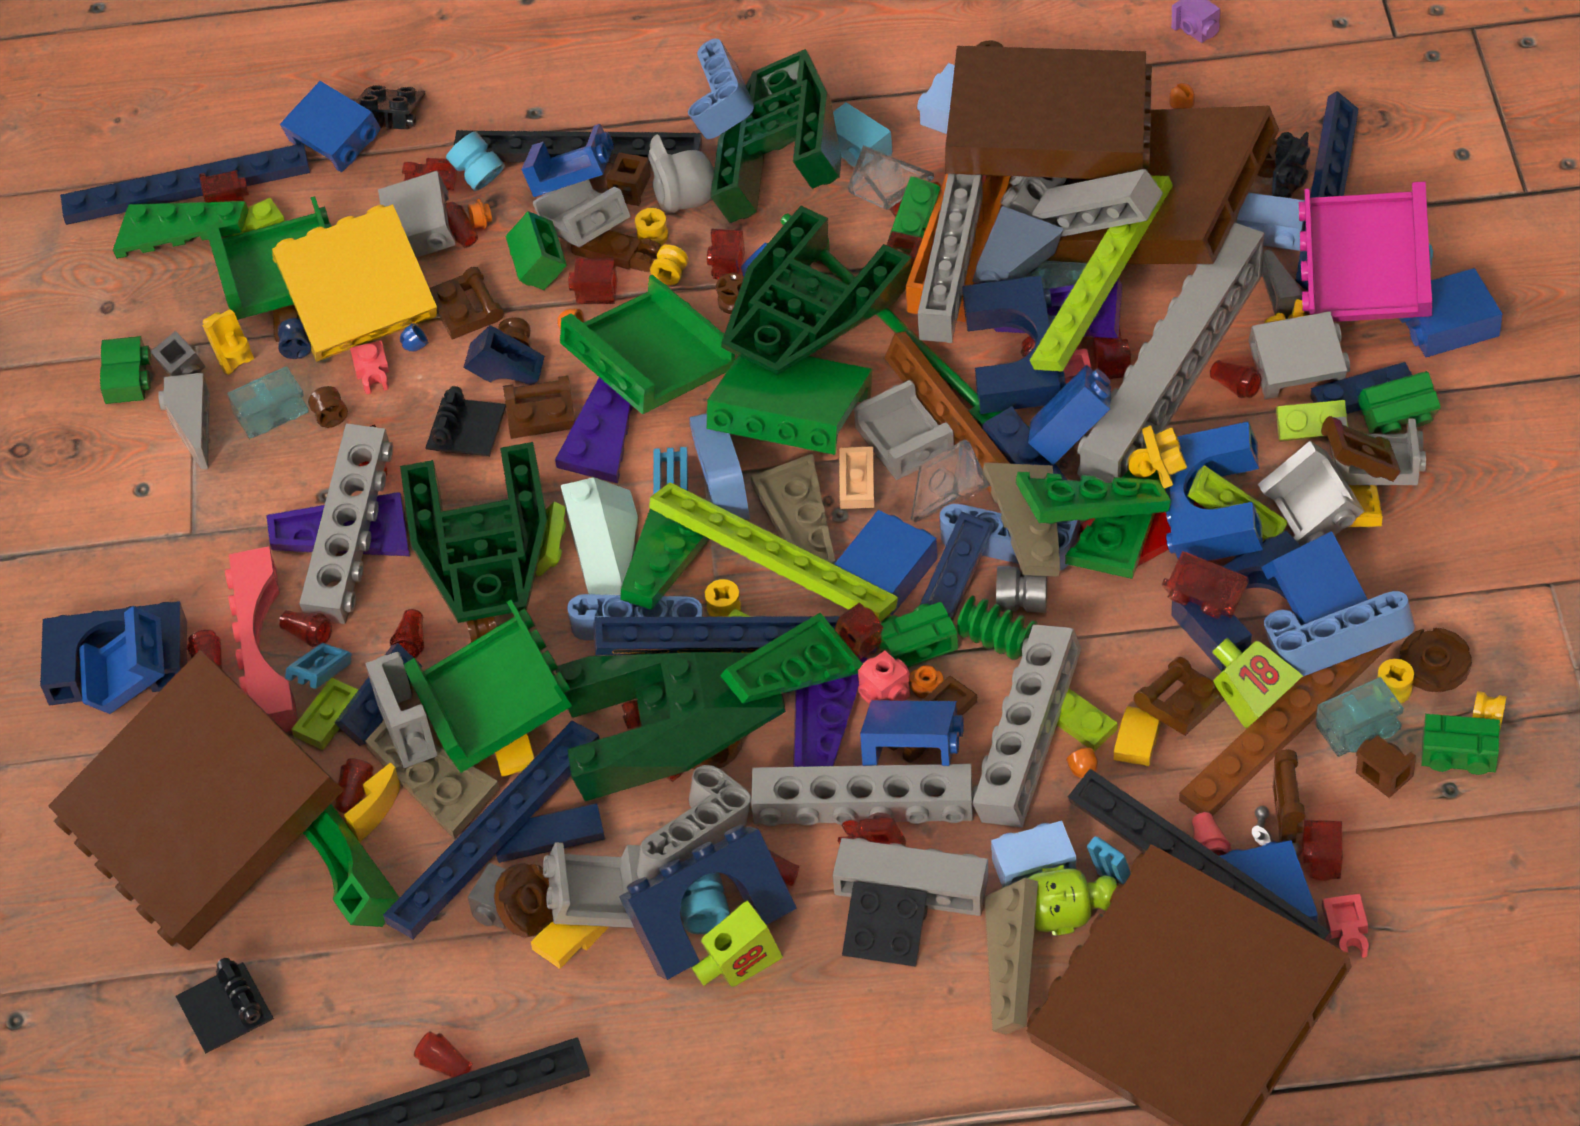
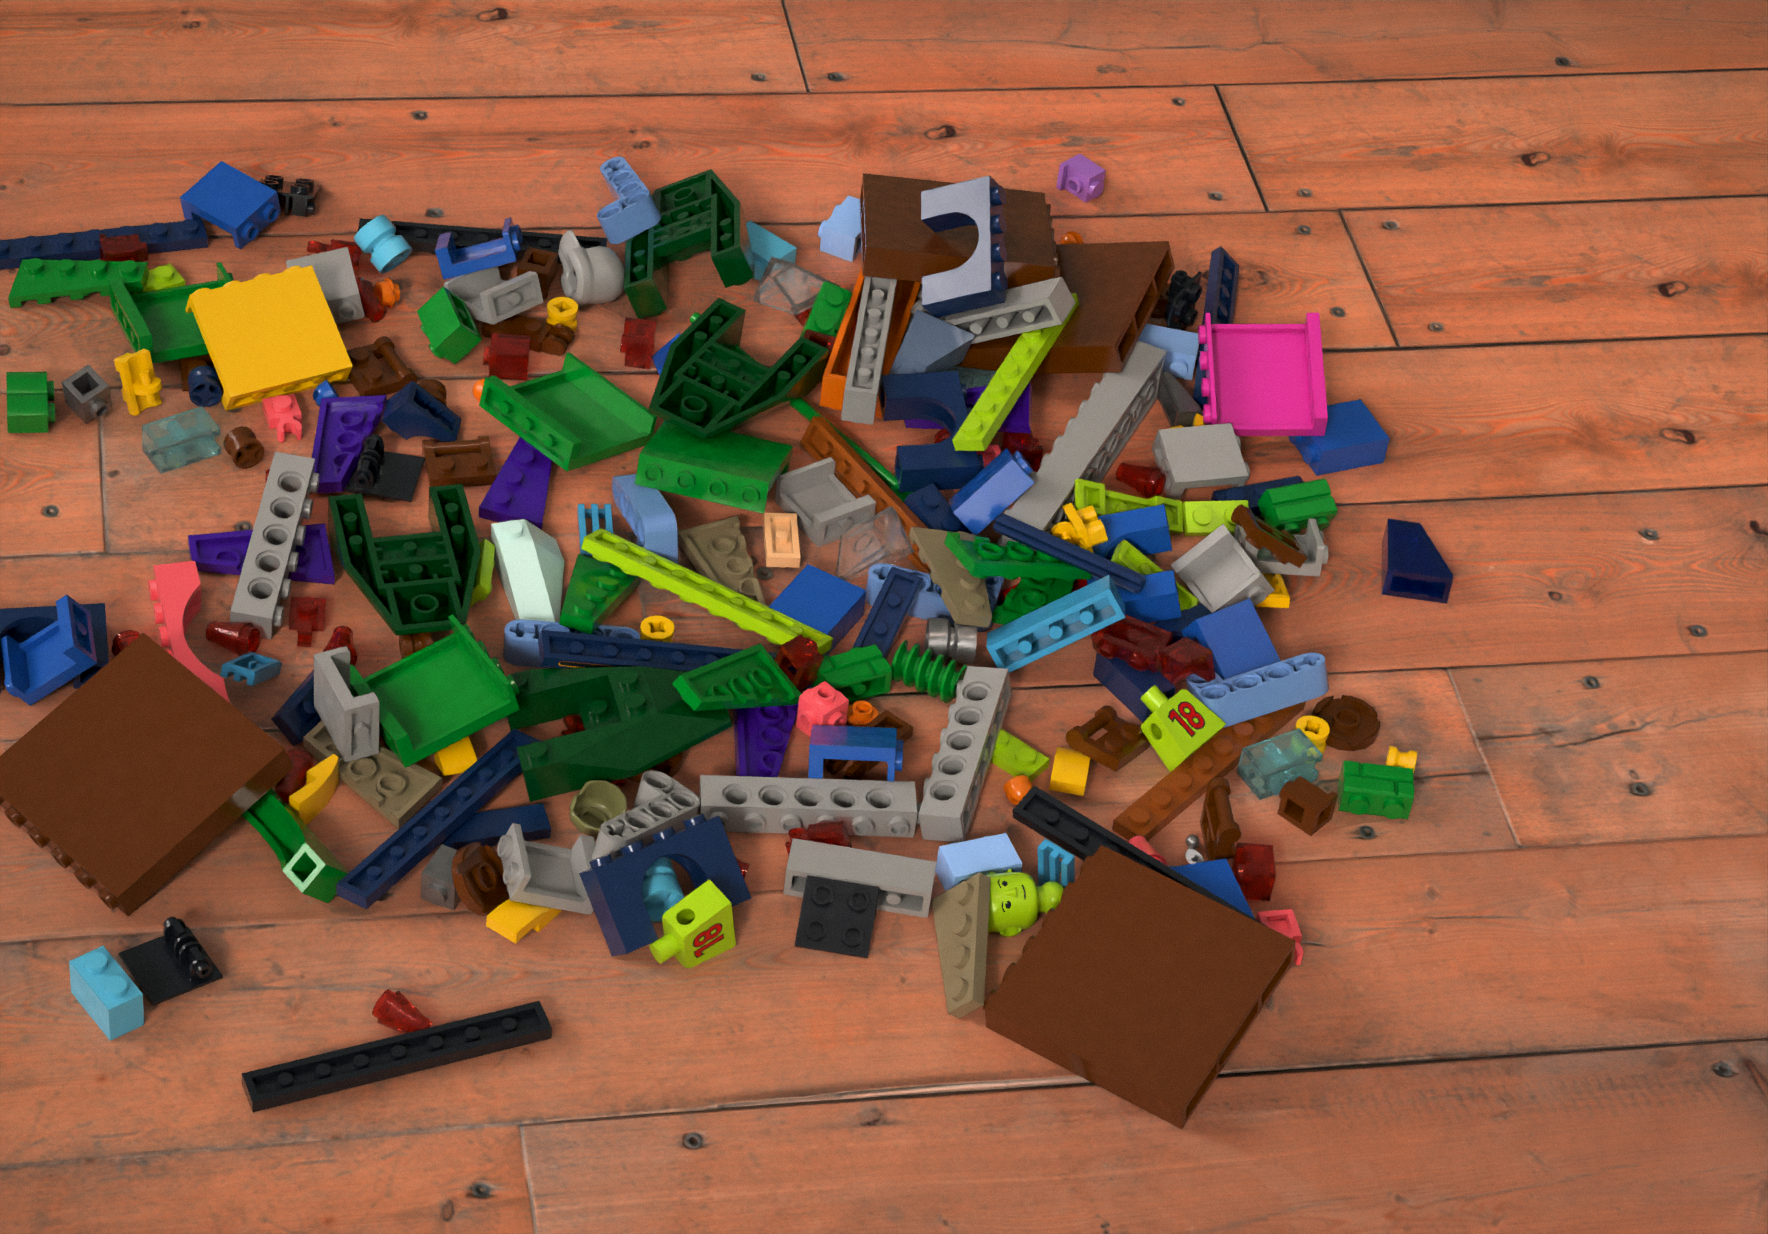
camera: 15 degrees left, 10 degrees down
(158, 1045) = (106, 993): none -> medium azure brick
(187, 407) = (97, 443): light grey slope -> none
(317, 722) = (264, 705): lime plate -> none
(377, 598) = (306, 616): none -> clear red plate
(424, 378) = (341, 436): none -> dark purple wing
(649, 808) = (596, 804): none -> olive hair
(669, 264) = (584, 345): yellow wheel -> none
(727, 290) = (646, 376): reddish brown wheel -> none
(1065, 172) = (981, 278): none -> arch
(1126, 573) = (1056, 625): none -> dark azure brick
(1144, 488) = (1069, 553): none -> dark blue axle
(1198, 417) = (1110, 502): none -> lime slope
(1260, 604) = (1186, 658): none -> clear red panel
(1519, 463) = (1413, 564): none -> clear blue slope

